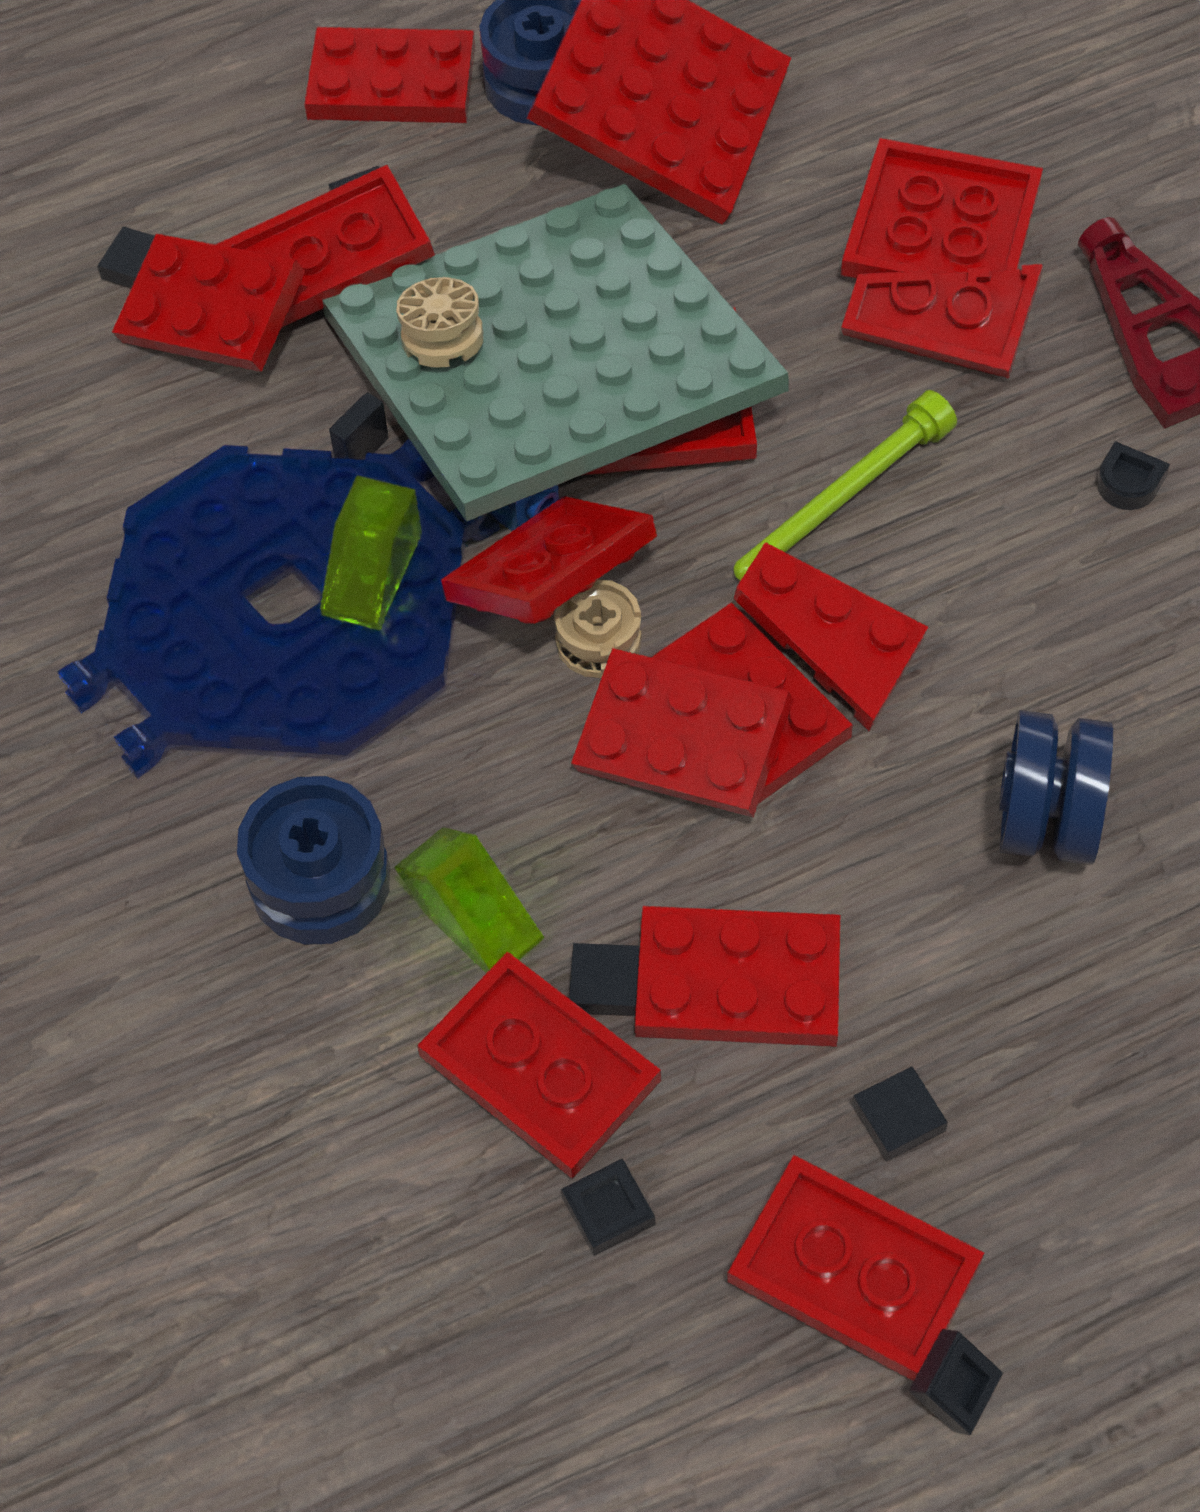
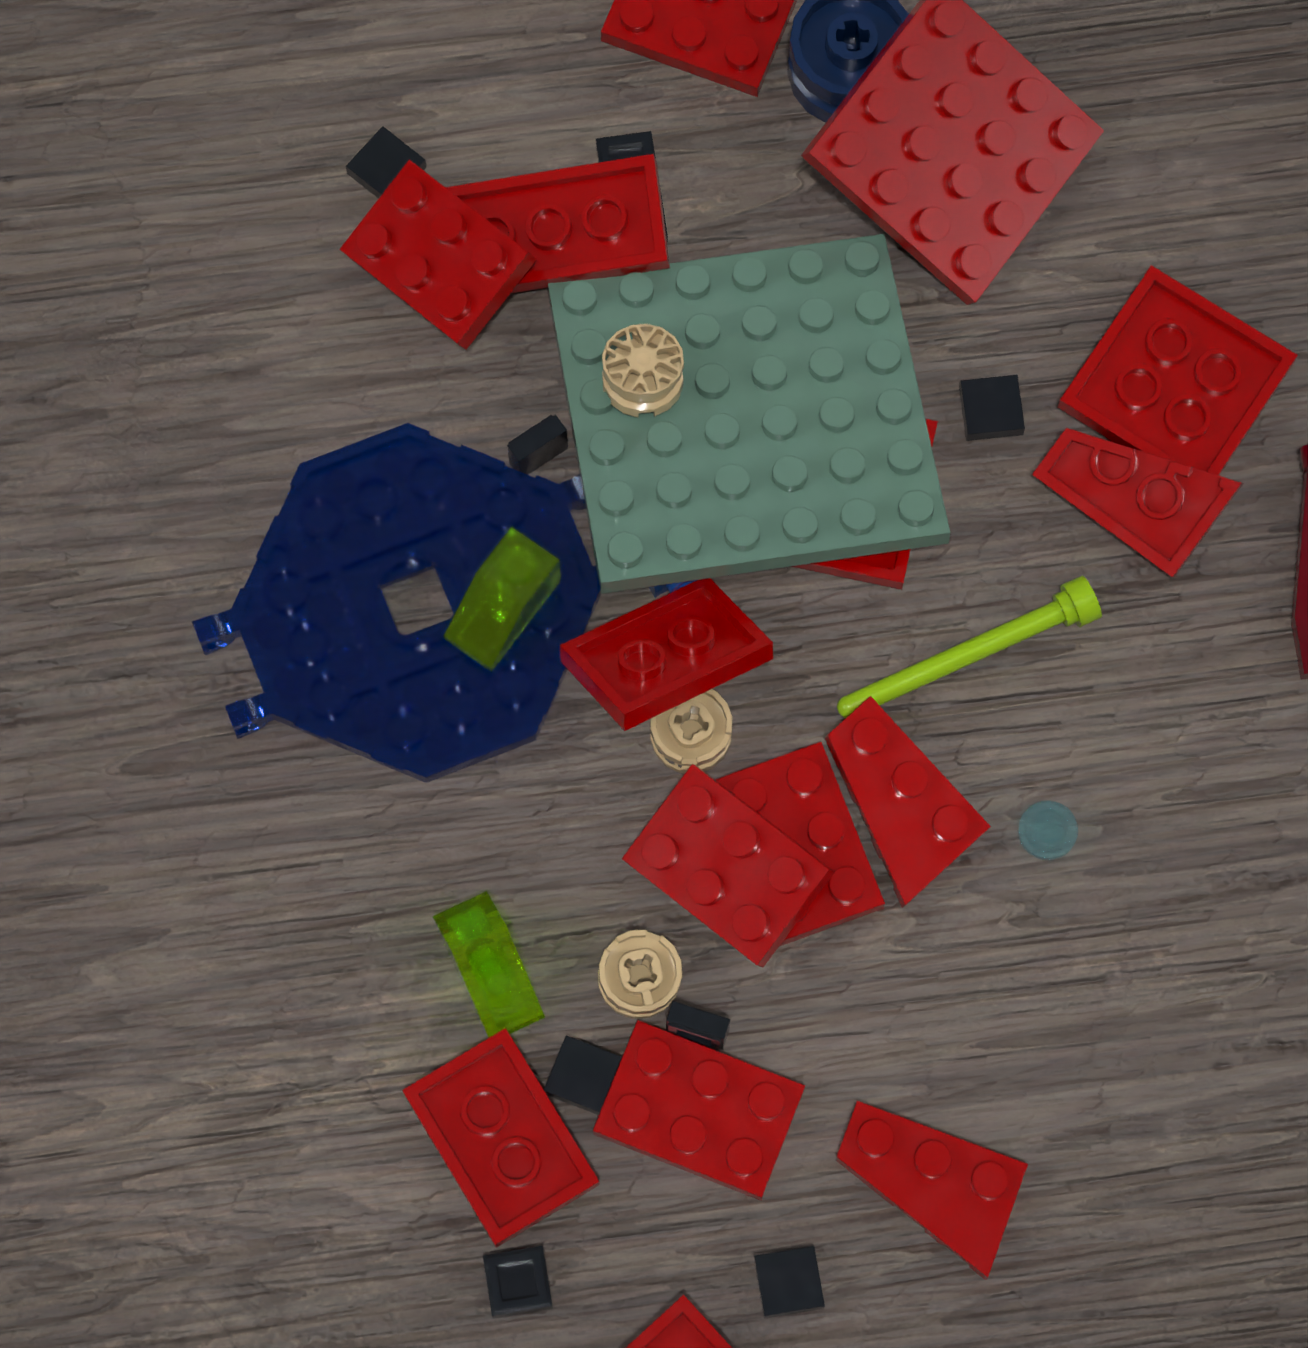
camera: 15 degrees right, 15 degrees up
(314, 859) = (358, 852): dark blue wheel -> none
(629, 862) = (639, 974): none -> tan wheel
(708, 886) = (698, 1026): none -> black tile
(780, 291) = (991, 407): none -> black tile
(985, 615) = (1048, 830): none -> clear light blue plate
(1014, 964) = (938, 1180): none -> red wing
(1063, 788) = (1029, 1037): dark blue wheel -> none
(1130, 477) = (1243, 725): black tile -> none

